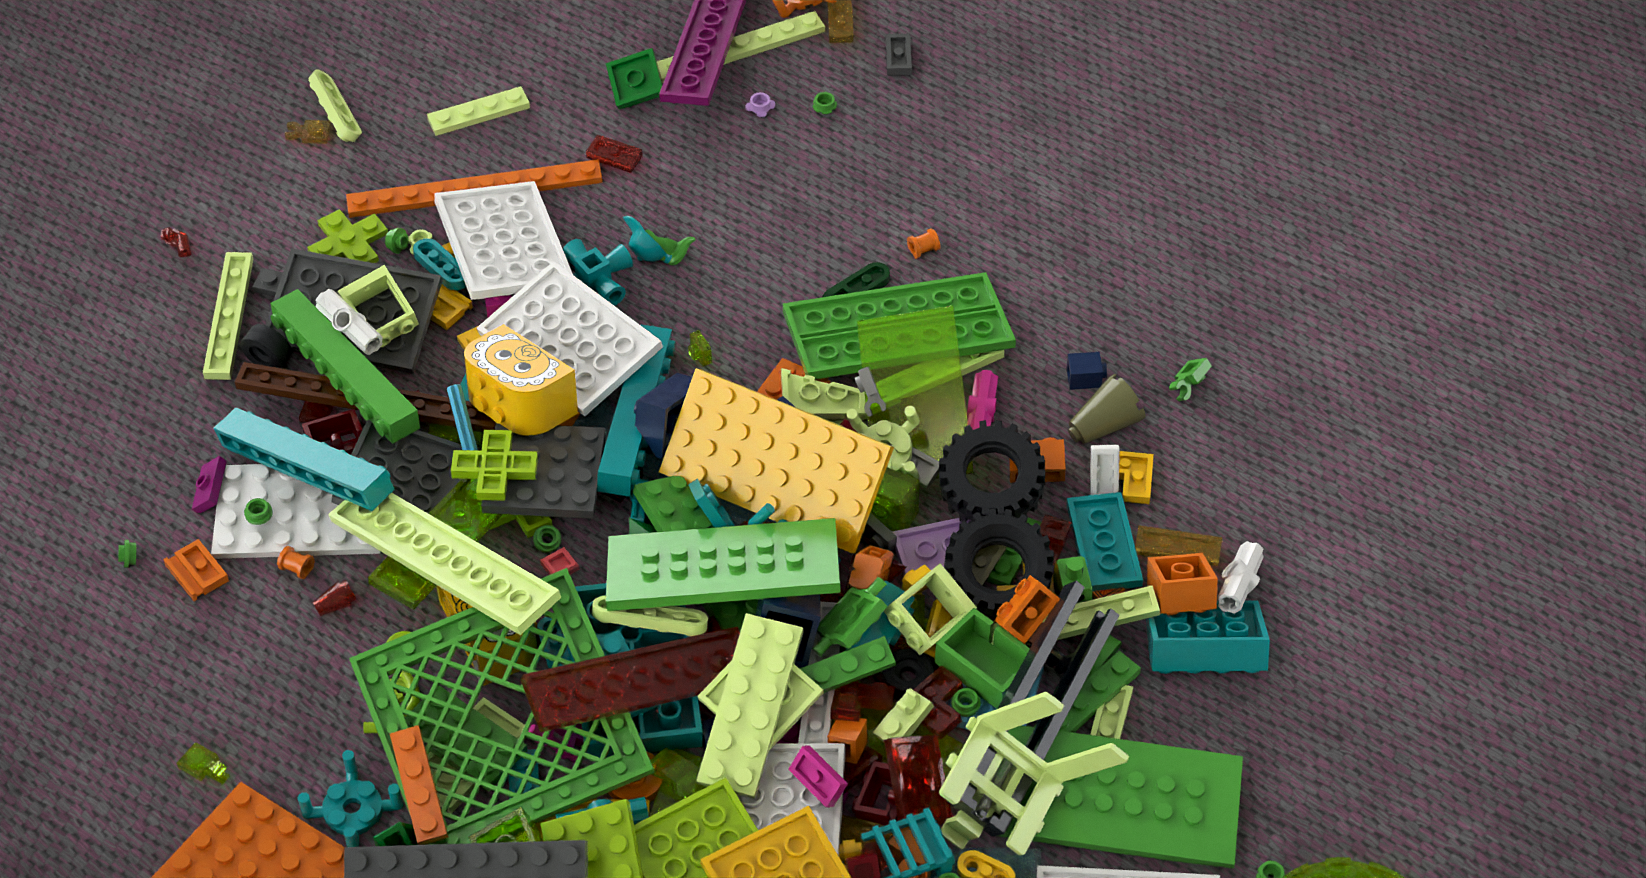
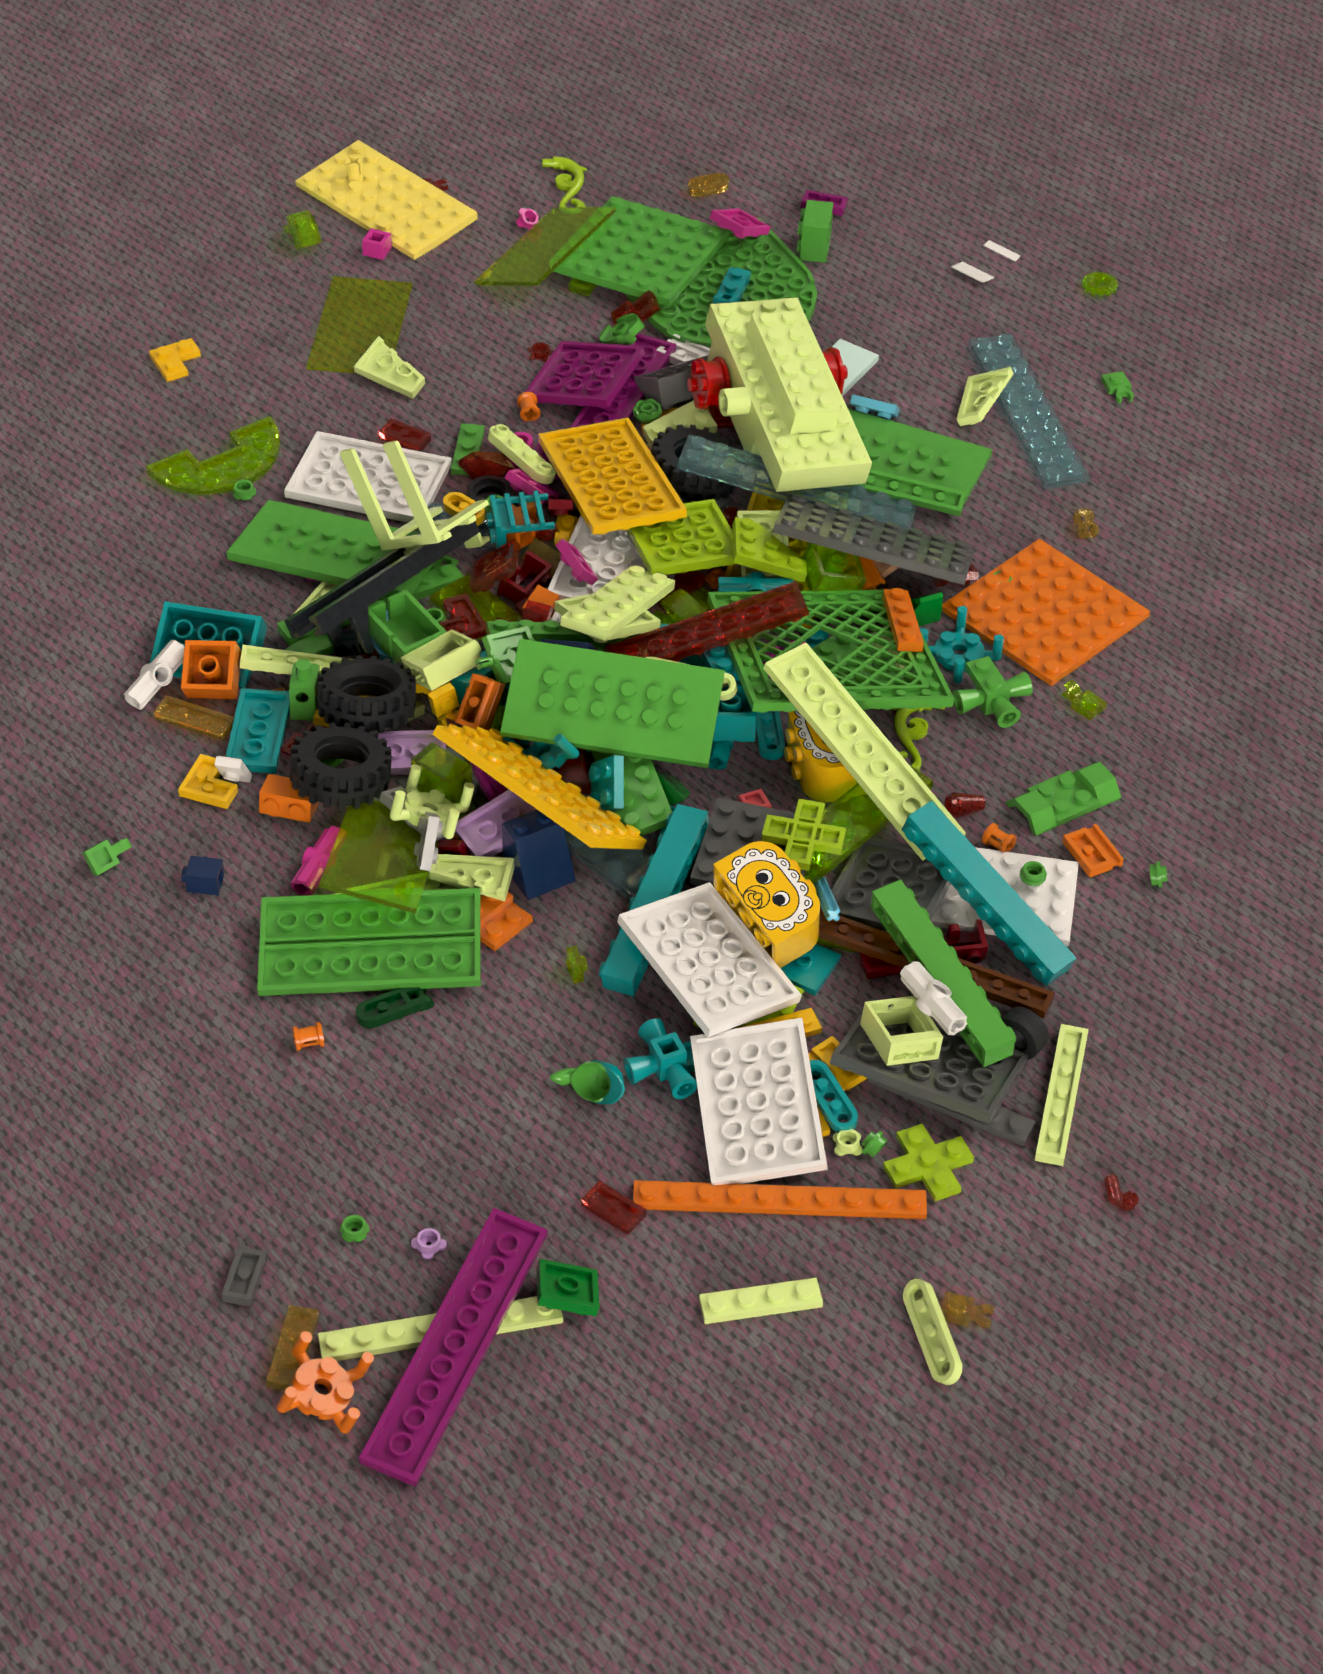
camera: 170 degrees left, 5 degrees down
(209, 485) = (1081, 921): magenta plate -> none
(229, 633) = (1066, 797): none -> bright green piece
(308, 736) = (992, 692): none -> bright green brick
(659, 412) = (623, 869): dark blue slope -> none
(904, 717) = (489, 609): yellowish green plate -> none
(1026, 609) = (360, 636): orange brick -> none
(1106, 412) = (203, 826): olive cone -> none

